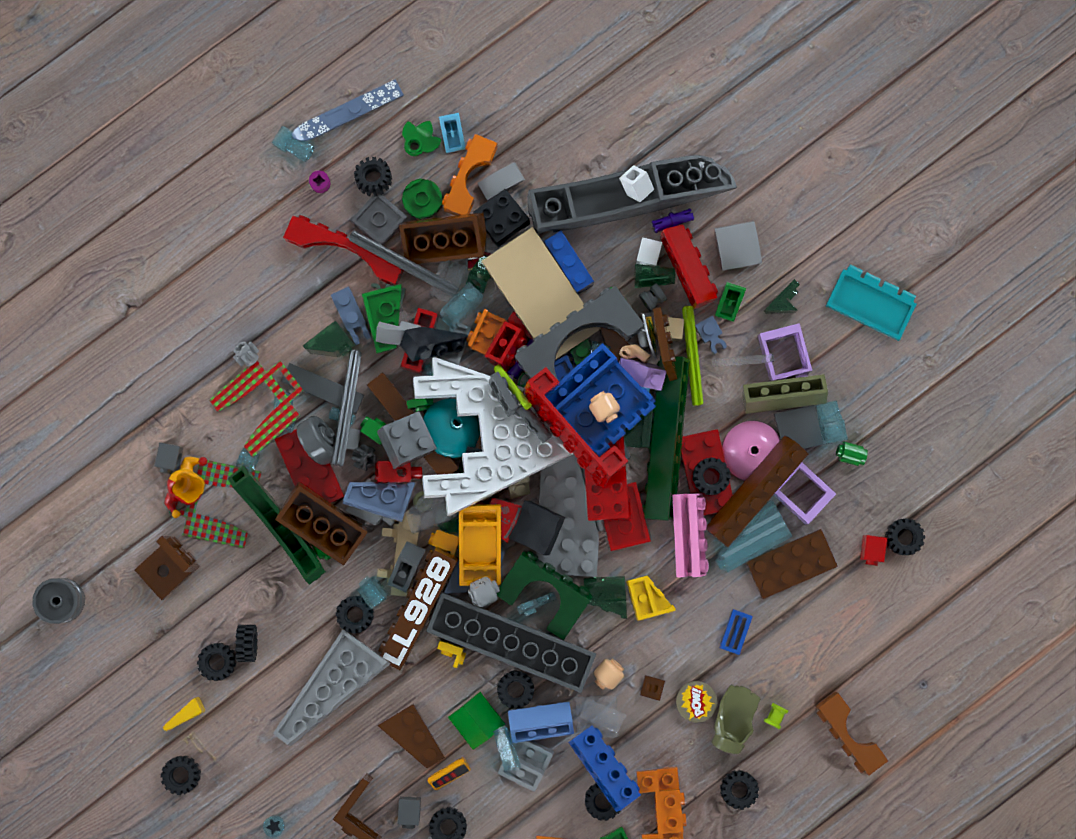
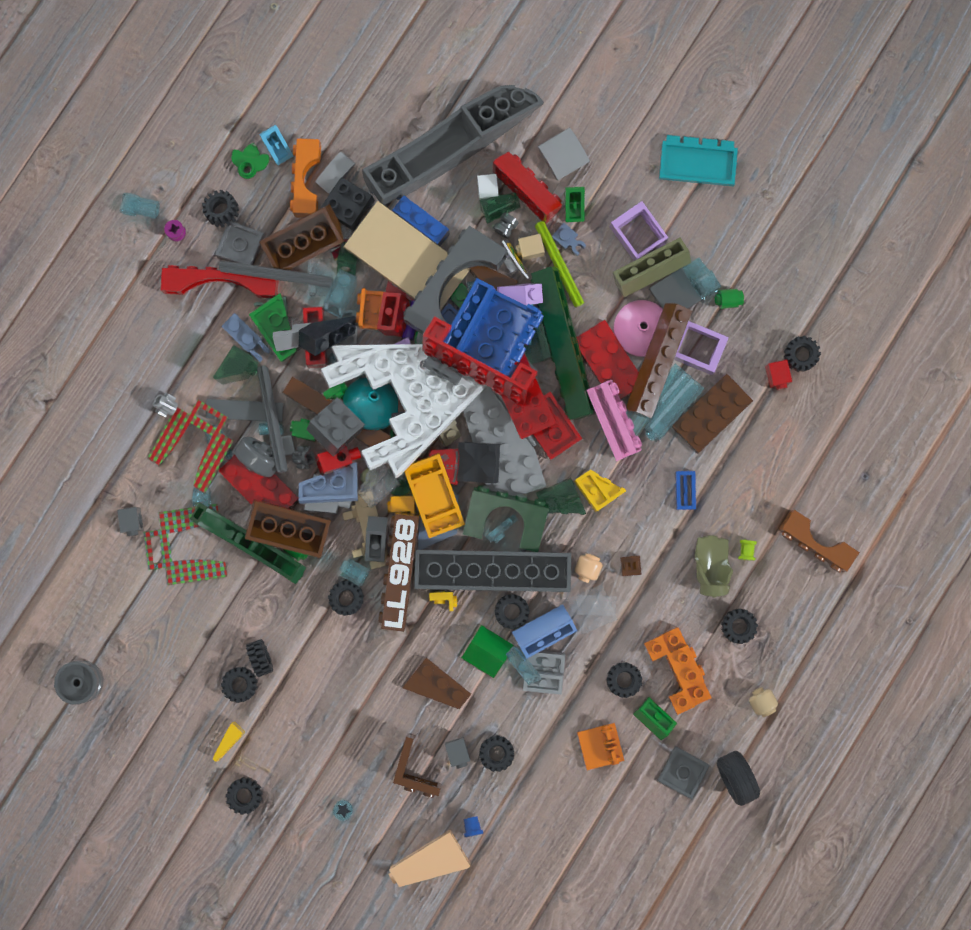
camera: 20 degrees left, 0 degrees up
(180, 565) = (166, 606): reddish brown bracket -> none
(184, 485) = (153, 539): light orange piece -> none
(338, 677) = (352, 656): light grey wing -> none
(348, 111) = (177, 160): sand blue piece -> none
(422, 198) = (271, 213): green tile -> none
(449, 773) = (480, 707): slope -> none
(483, 591) = (452, 535): light grey head -> none
(500, 388) = (401, 351): dark grey plate -> none
(513, 388) = (411, 346): lime bar -> none
(604, 407) = (499, 333): light nougat head -> none
(604, 768) = (615, 650): blue brick -> none
(634, 351) = (507, 277): light nougat arm -> none
(636, 183) = (455, 129): white brick -> none
(665, 339) = (530, 257): reddish brown wing -> none
(672, 220) = (498, 151): dark purple pin -> none
(696, 701) = (673, 563): tile -> none
(720, 467) = (614, 373): black tyre -> none
(743, 360) = (605, 251): clear bar -> none
(780, 303) = (620, 190): clear green slope -> none

